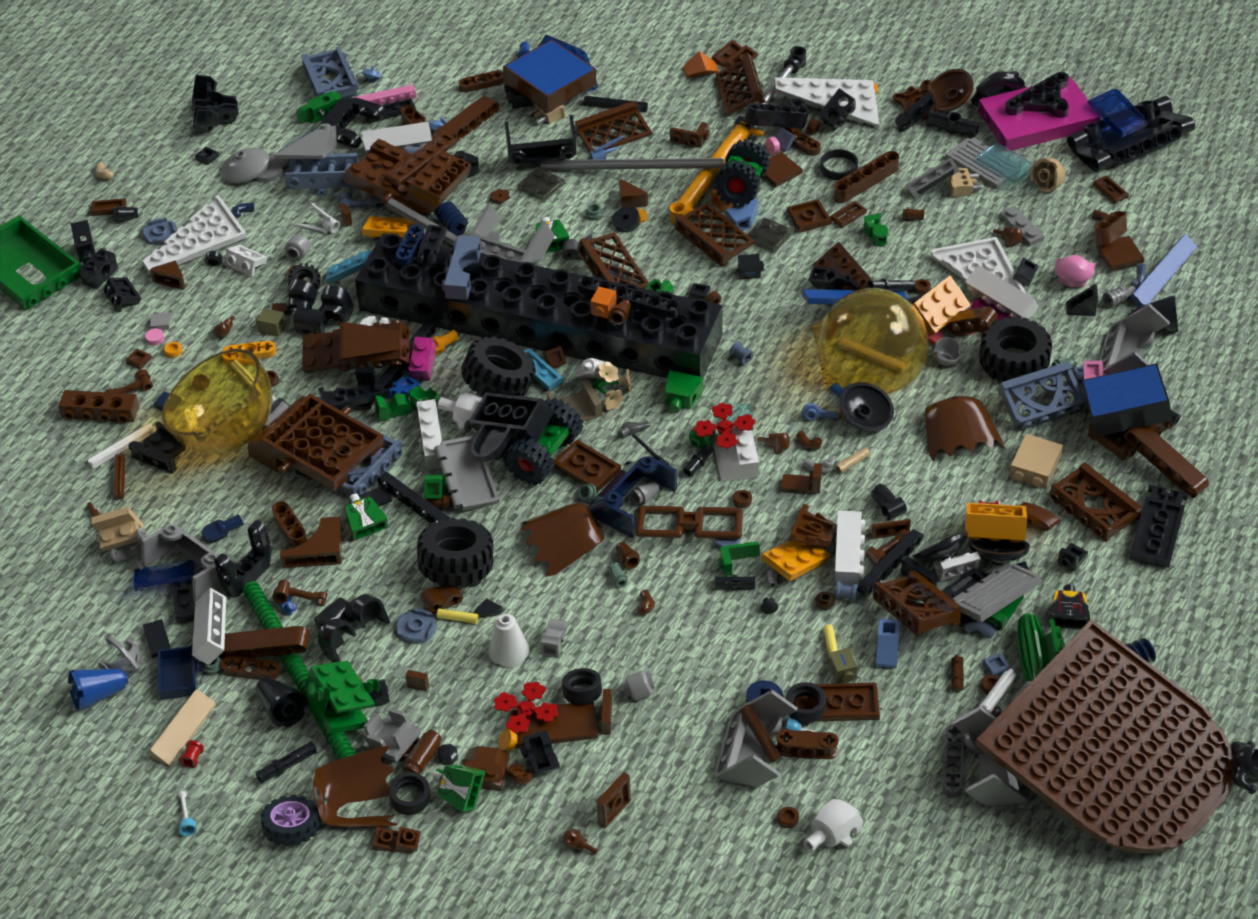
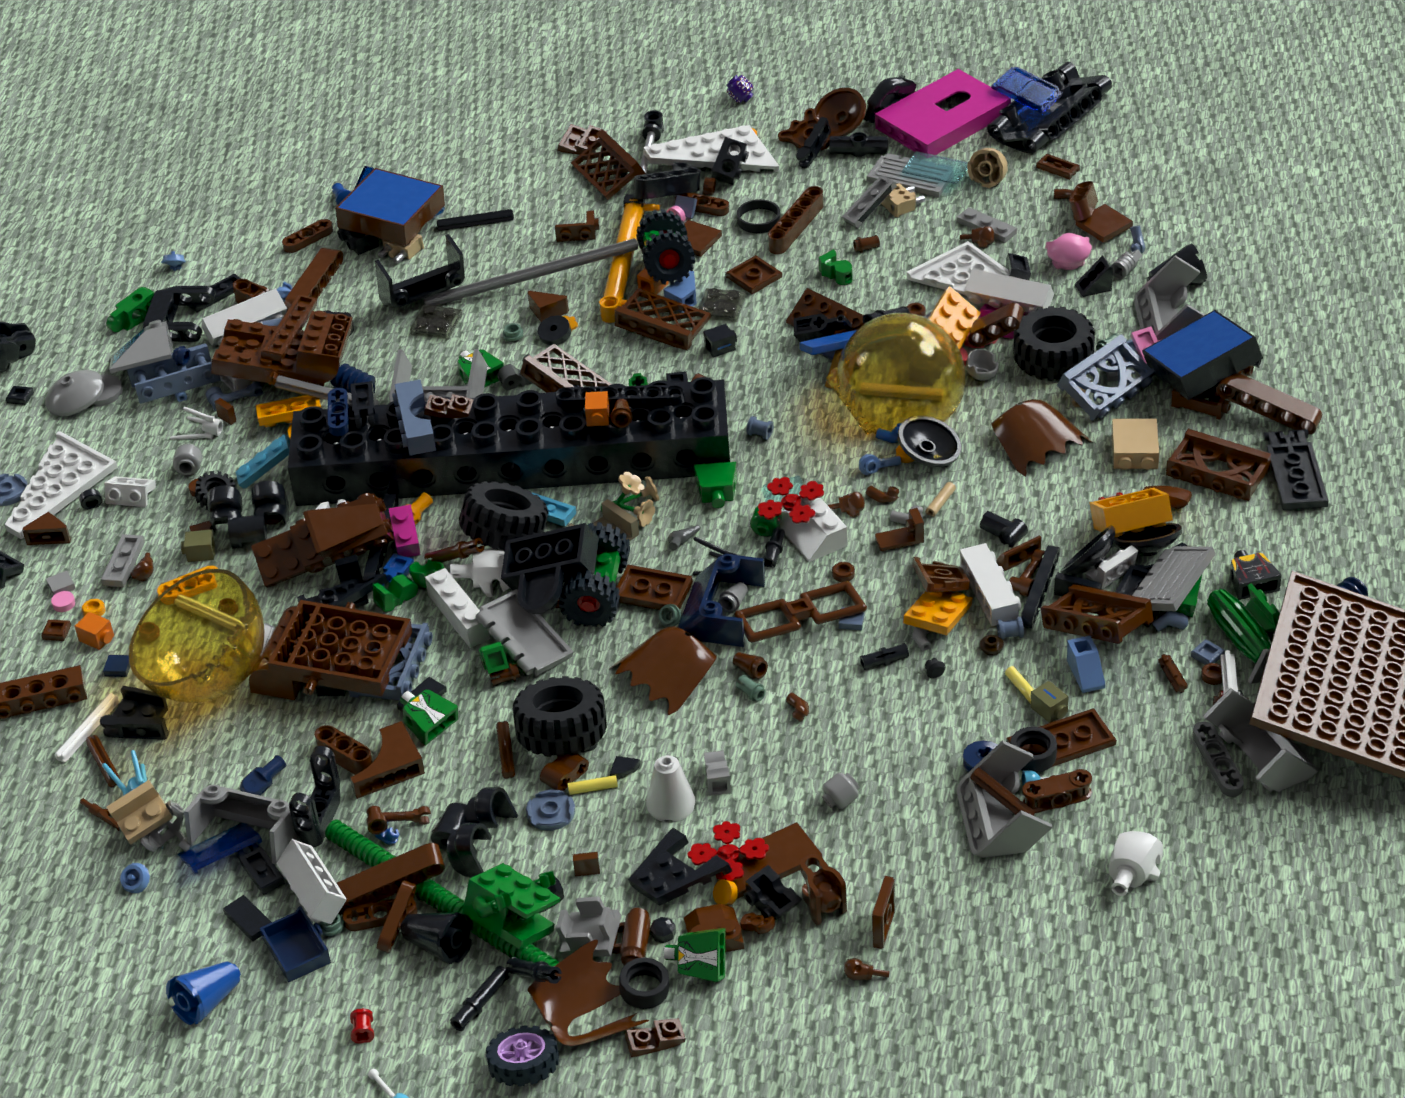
camera: 20 degrees left, 5 degrees down
(93, 578) = (135, 878): none -> medium blue hat
(128, 656) = (229, 943): light grey helmet -> none
(130, 502) = (134, 782): none -> medium azure plant
(142, 380) = (74, 650): reddish brown brick -> none
(162, 368) = (94, 630): none -> orange brick
(182, 728) = (334, 1003): tan slope -> none
(211, 316) = (123, 560): none -> light grey plate
(244, 207) = (96, 437): dark blue arm -> none
(259, 671) = (396, 916): none -> reddish brown beam
(318, 61) = (99, 266): sand blue fence -> none
(329, 756) = (537, 971): none -> black pin
(332, 158) = (181, 355): none -> dark blue plate
(391, 95) = (211, 275): bright pink piece -> none
(407, 567) = (505, 750): none -> reddish brown axle
(411, 498) = (462, 680): black beam -> none
(454, 388) = (460, 550): none -> reddish brown pin
(469, 709) = (665, 877): none -> black wing
(495, 267) = (444, 408): none -> reddish brown slope
(500, 195) = (395, 344): reddish brown plant -> none
(555, 357) = (554, 488): reddish brown tile -> none
(576, 763) = (823, 889): none -> reddish brown piece
(581, 695) = (780, 820): black tyre -> none
(589, 369) = (608, 488): white piece -> none
(600, 153) = (486, 271): medium blue plant -> none
(605, 712) = (818, 828): reddish brown plate -> none
(607, 119) = (476, 237): reddish brown fence -> none
(700, 65) = (548, 158): orange slope -> none
(735, 552) = (864, 628): green bracket -> none
(788, 817) = (1076, 871): reddish brown tile -> none
(850, 215) = (799, 262): reddish brown tile -> none
(882, 45) = (740, 88): none -> dark purple head
(1037, 101) = (937, 95): black beam -> none
(1072, 556) = (1225, 524): black bracket -> none
(1163, 271) = (1158, 228): tile -> none

